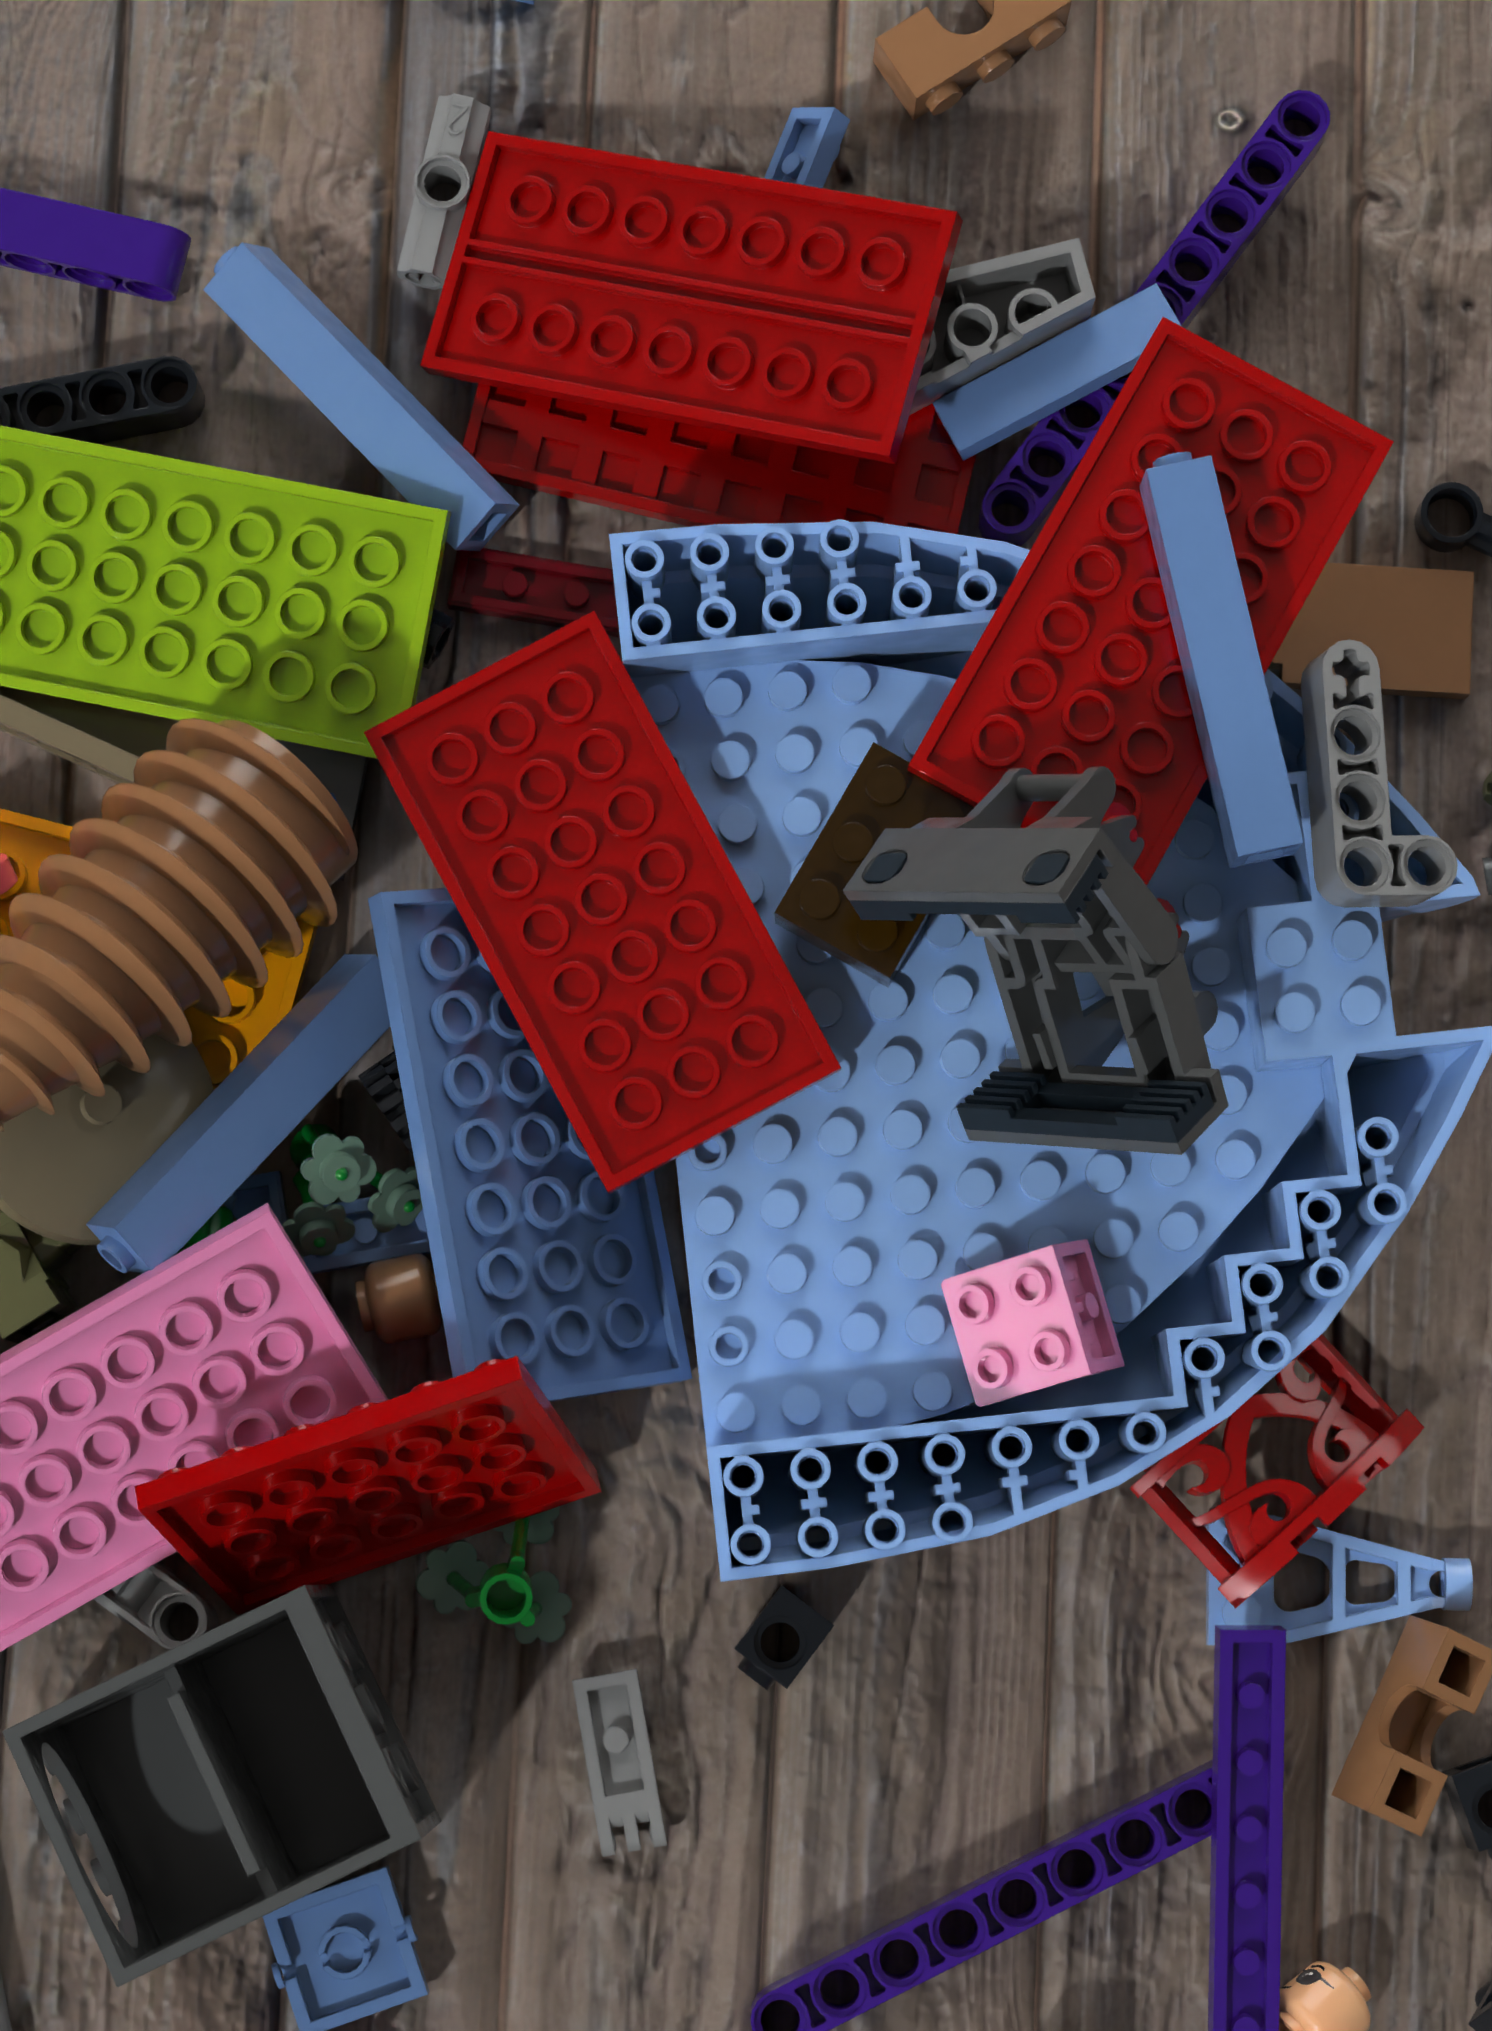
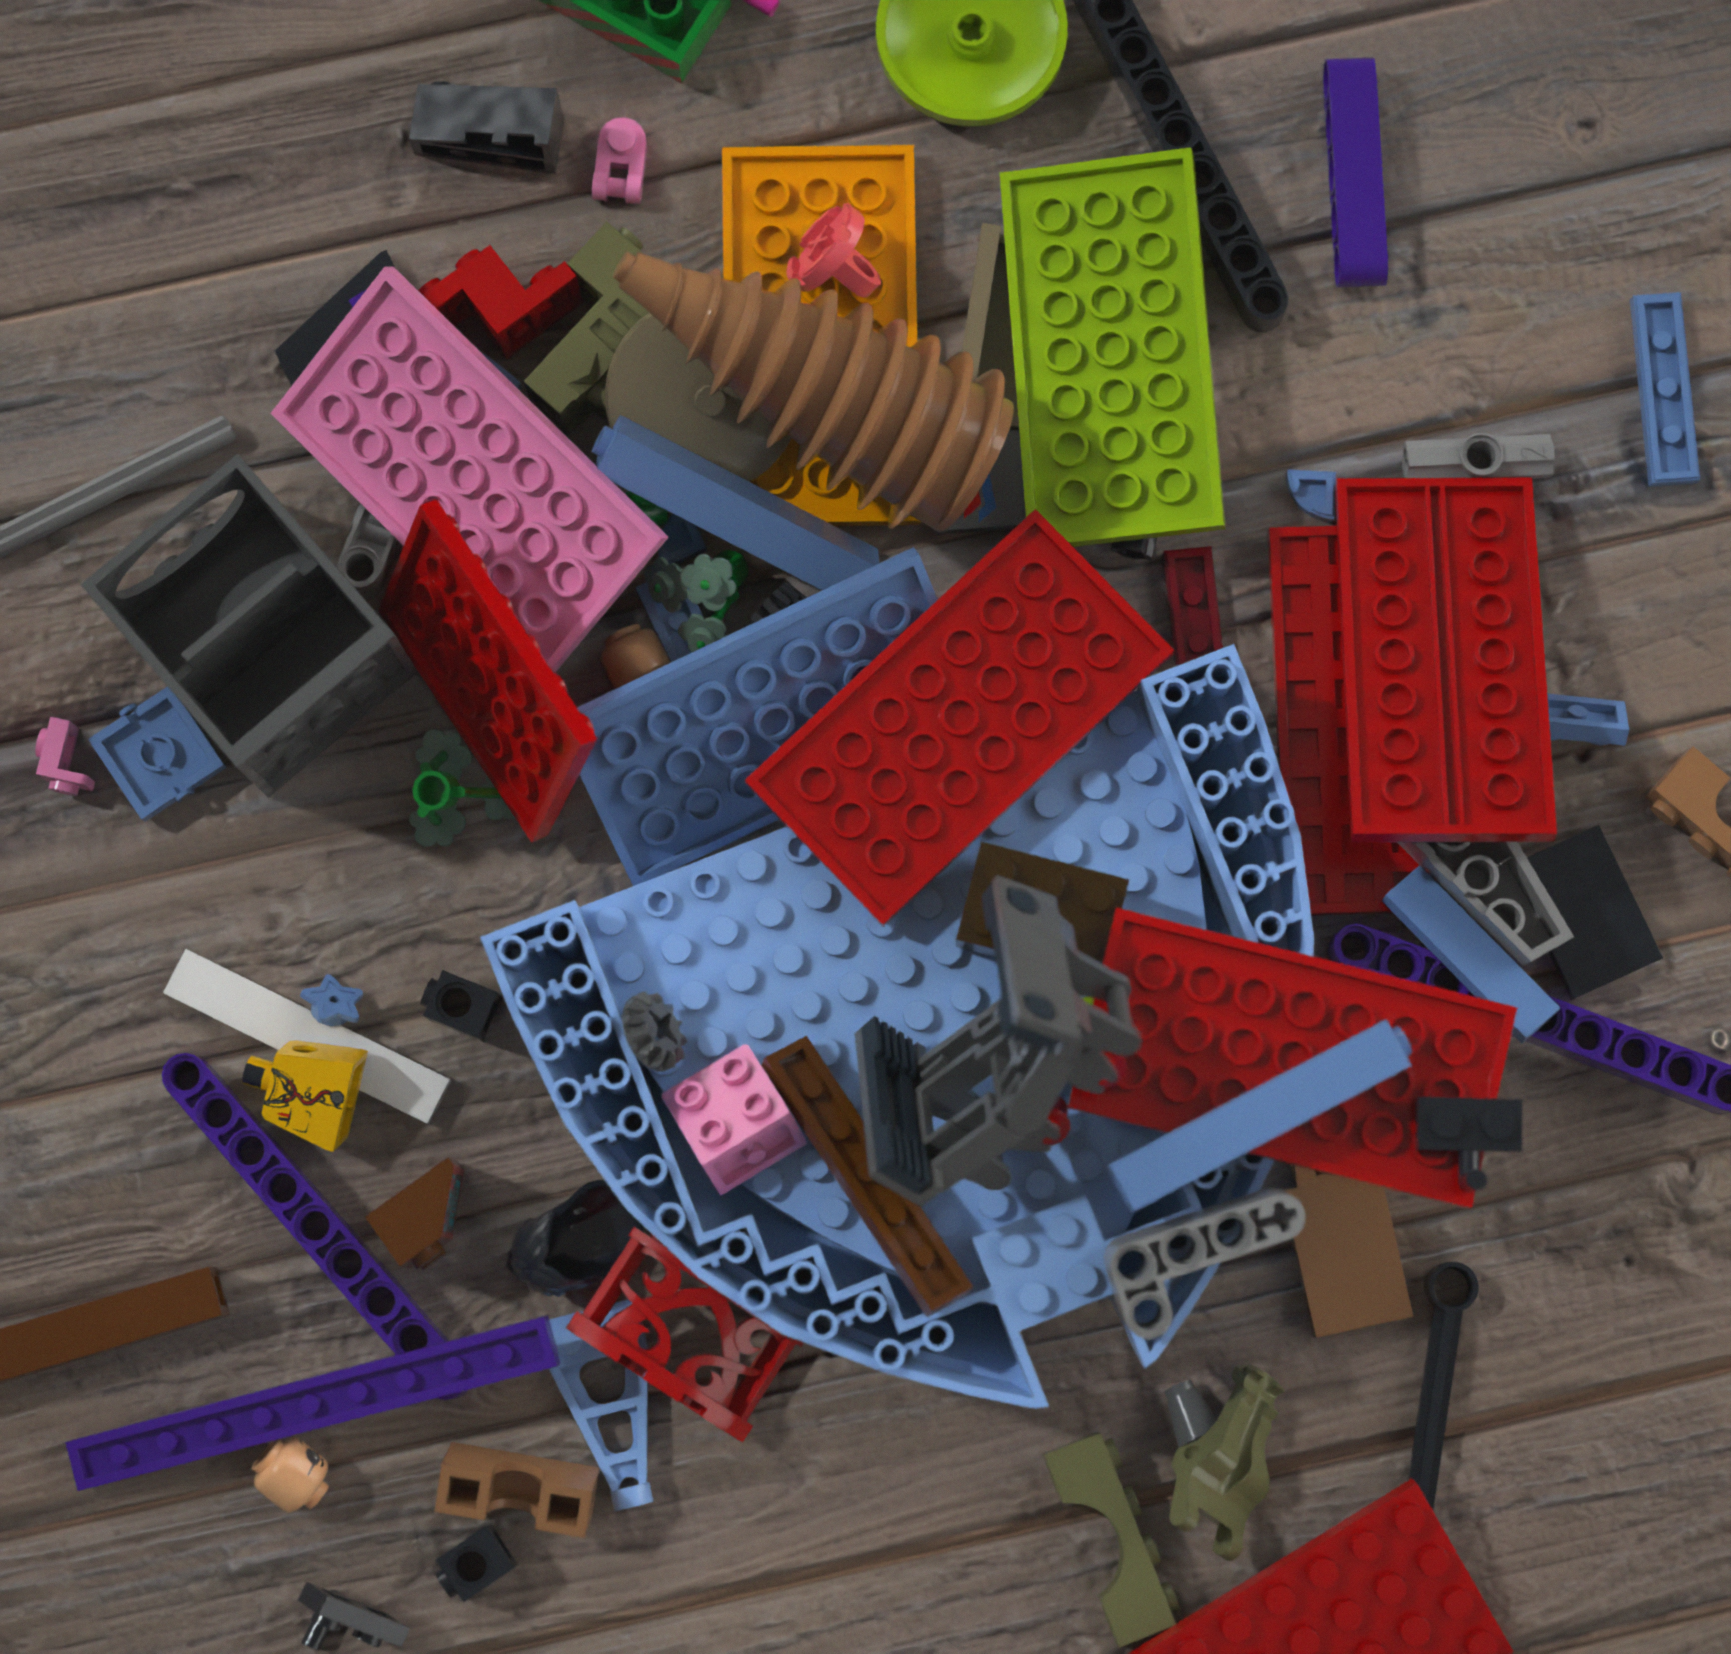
camera: 75 degrees right, 0 degrees up
(358, 394) = (1300, 440): medium blue brick -> none
(438, 395) = (1313, 492): none -> medium blue tile
(619, 1758) = (343, 911): light grey hinge -> none
(746, 1811) = (333, 1013): none -> medium blue plate
(765, 1850) = (280, 1020): none -> white tile
(839, 1861) = (310, 1089): none -> yellow torso
(899, 1392) = (649, 1017): none -> dark grey gear
(1044, 207) = (1598, 909): none -> black tile
(1045, 1762) = (421, 1216): none -> reddish brown slope
(1123, 1573) = (572, 1241): none -> black hair
(1131, 1183) = (840, 1140): none -> reddish brown plate
(1298, 415) = (1469, 1128): none -> black plate

